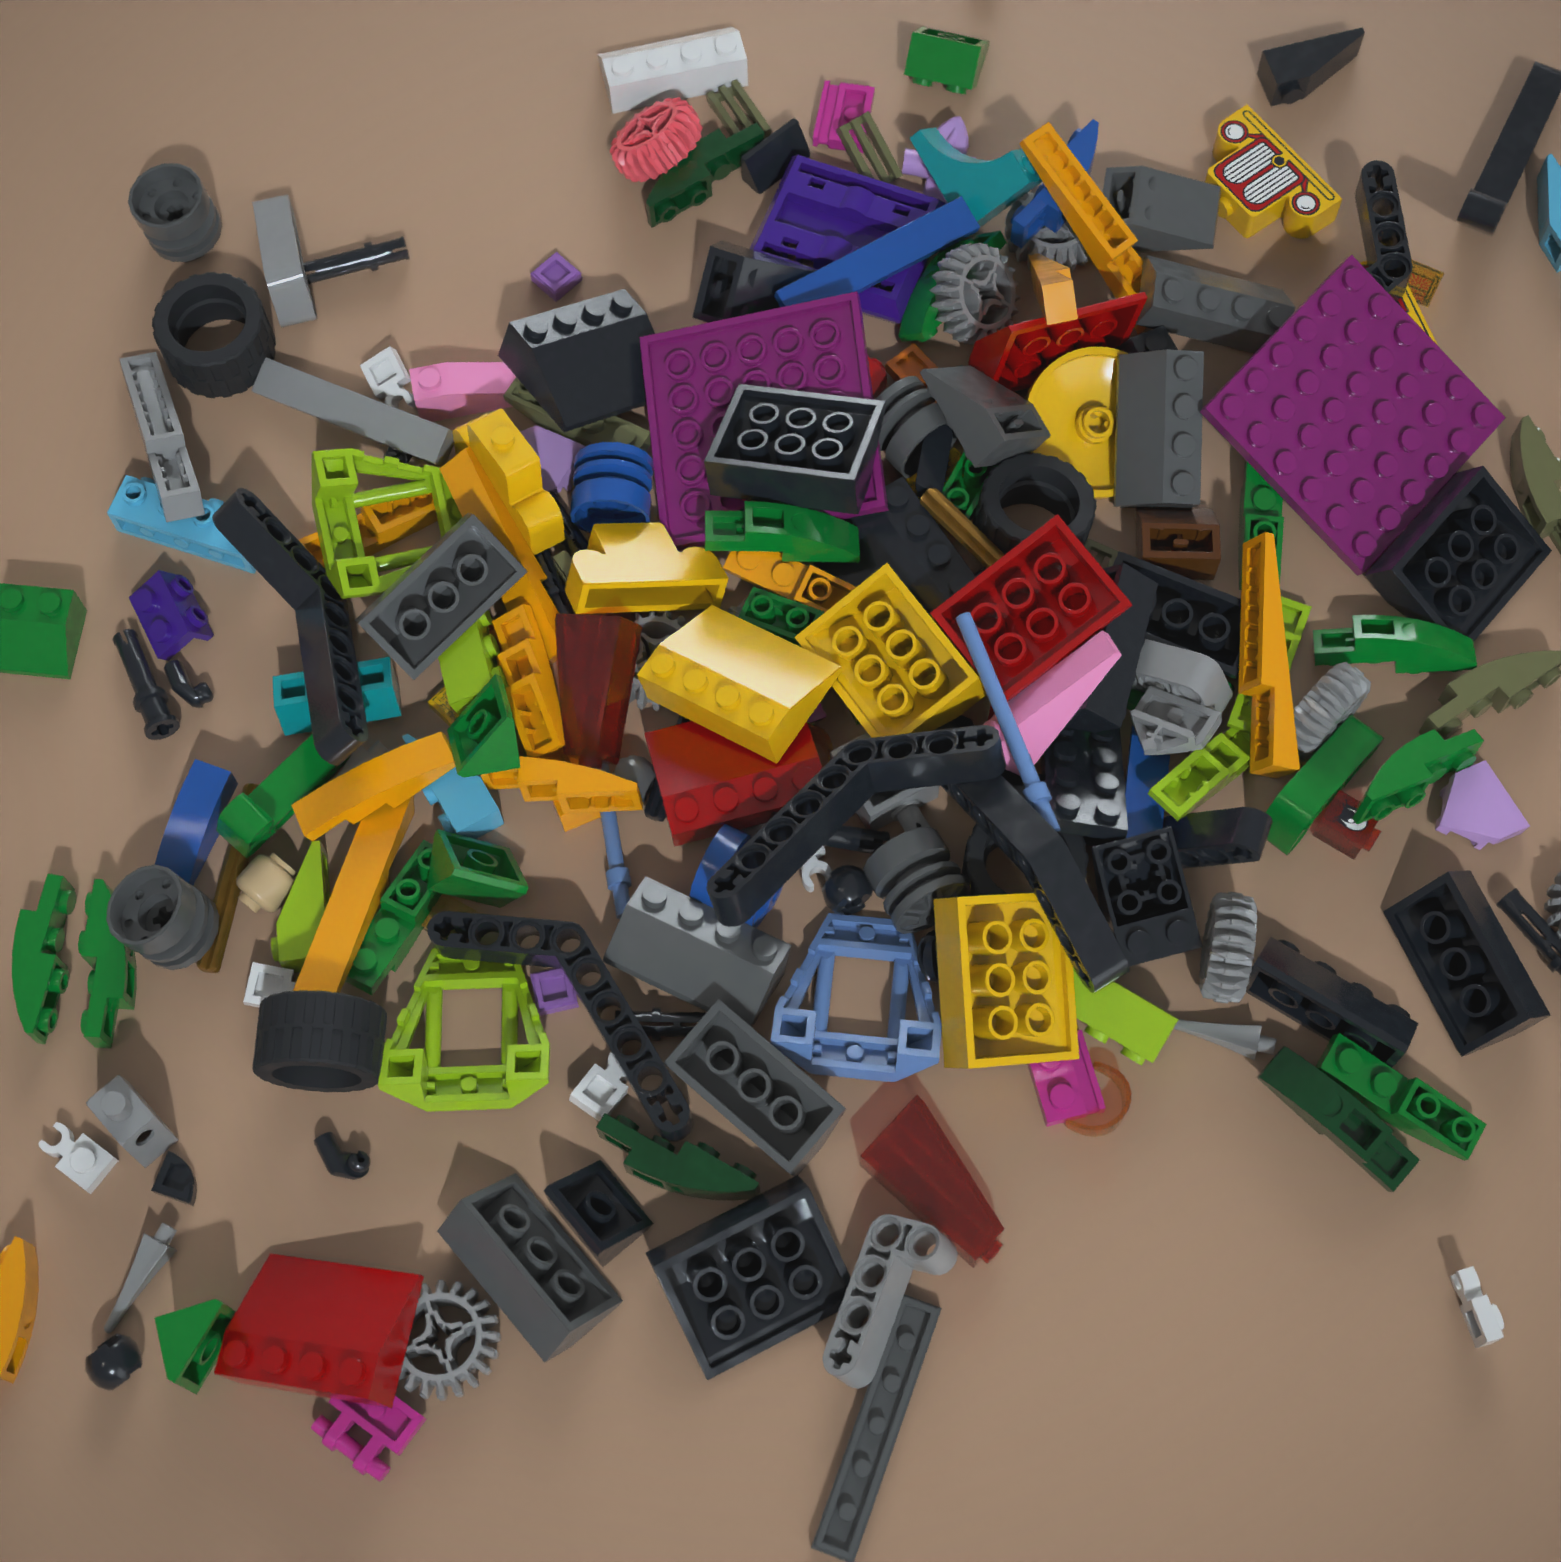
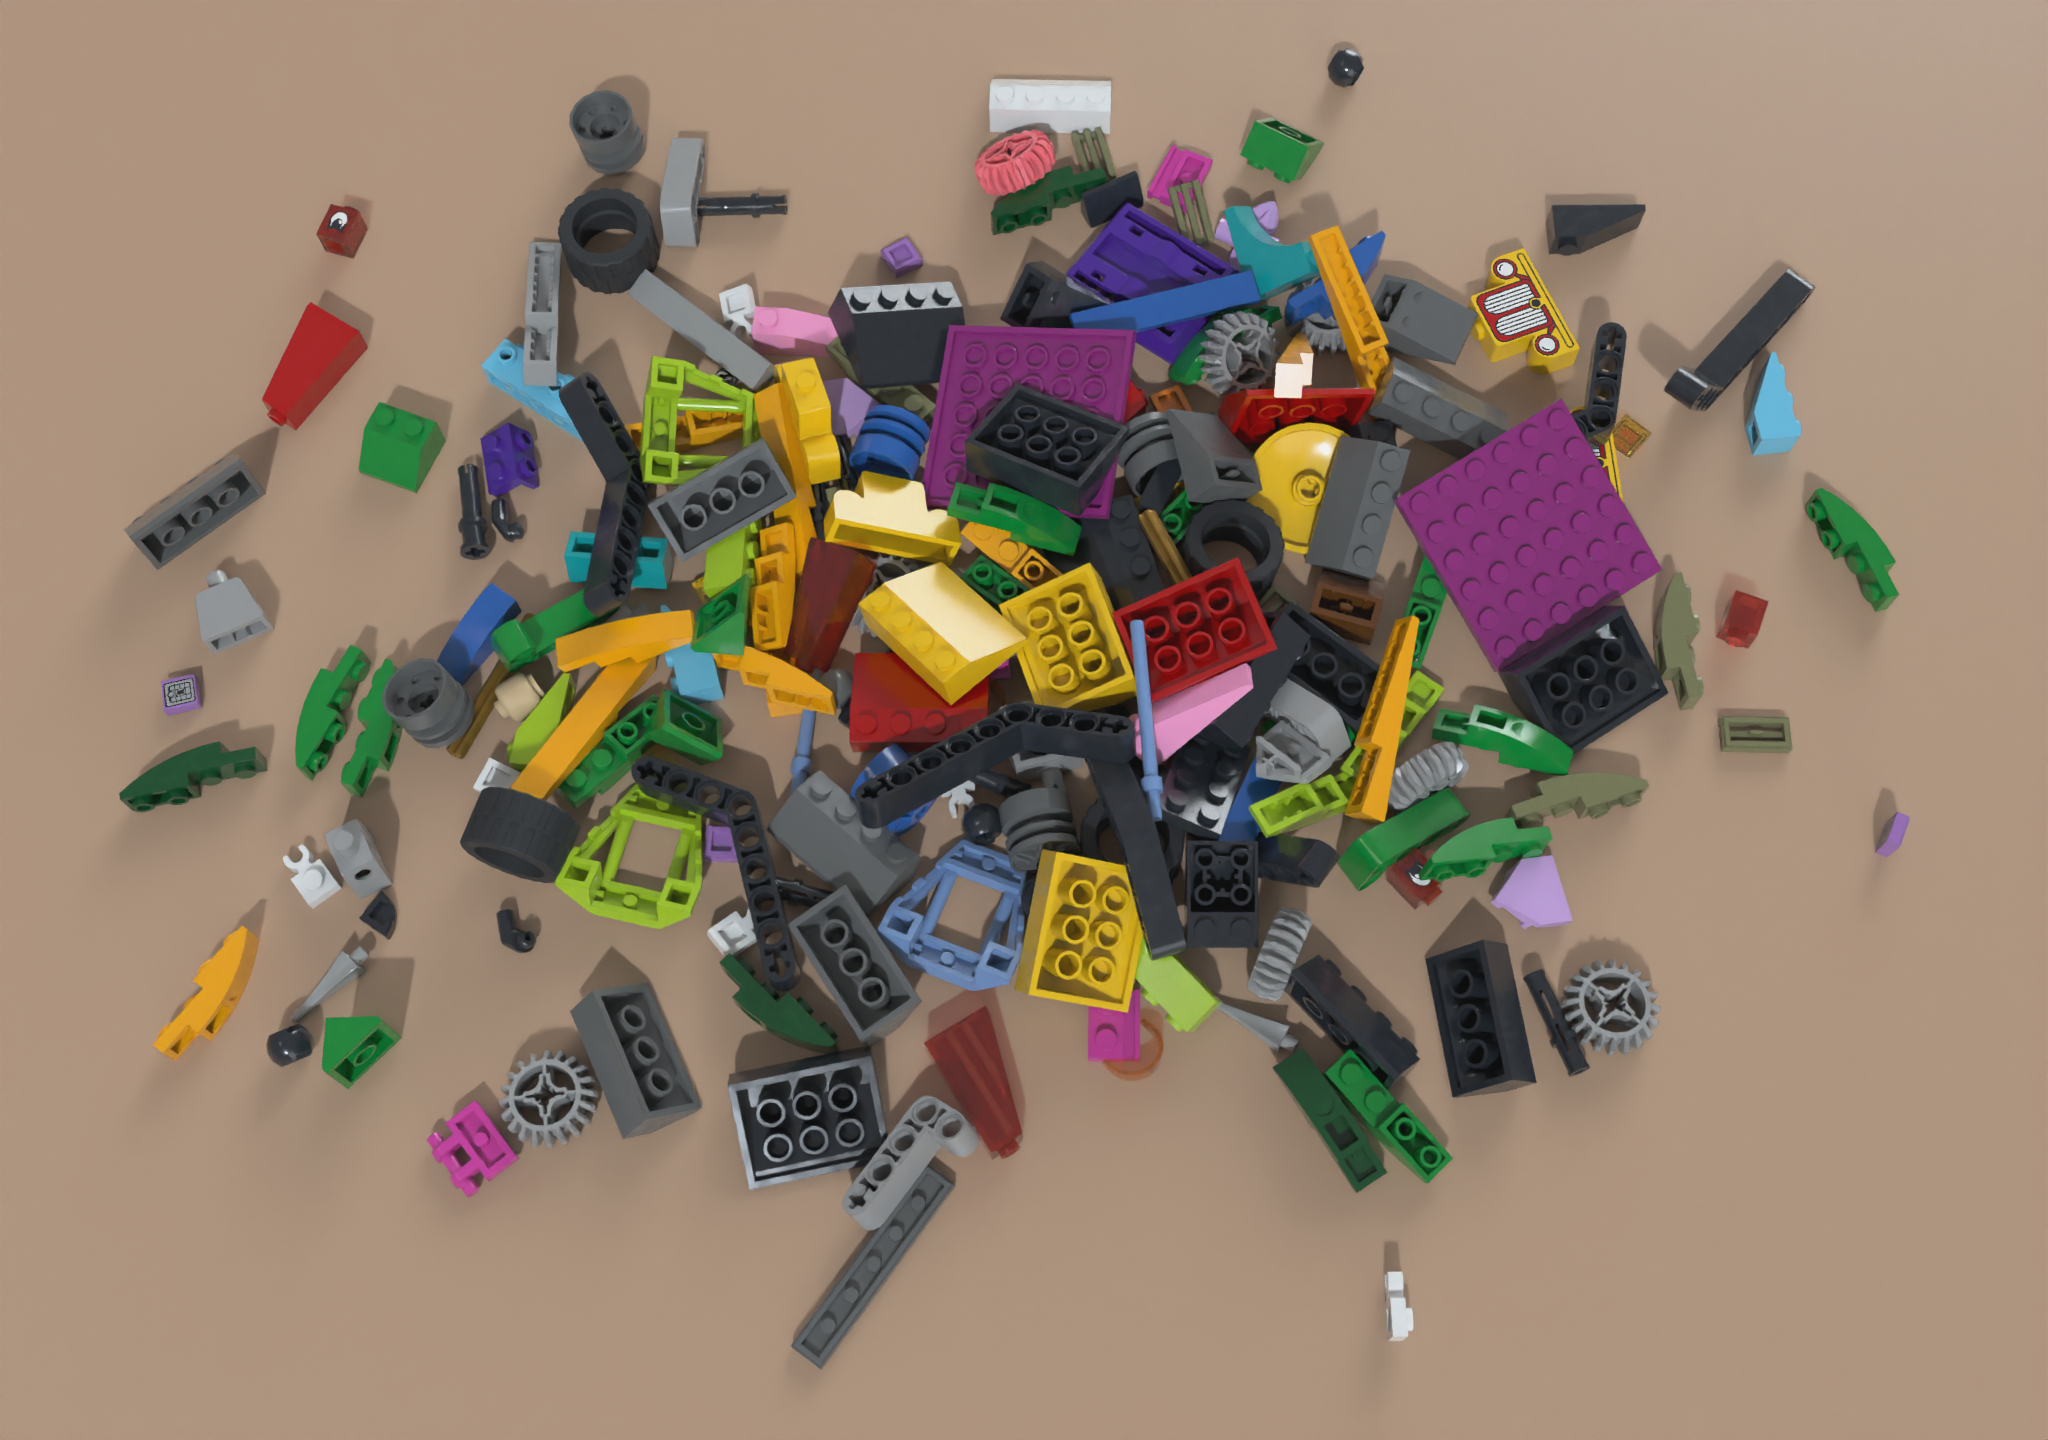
camera: 15 degrees right, 0 degrees up
(322, 1330) = (456, 1064): red slope -> none
(598, 1211) = (702, 1030): black slope -> none

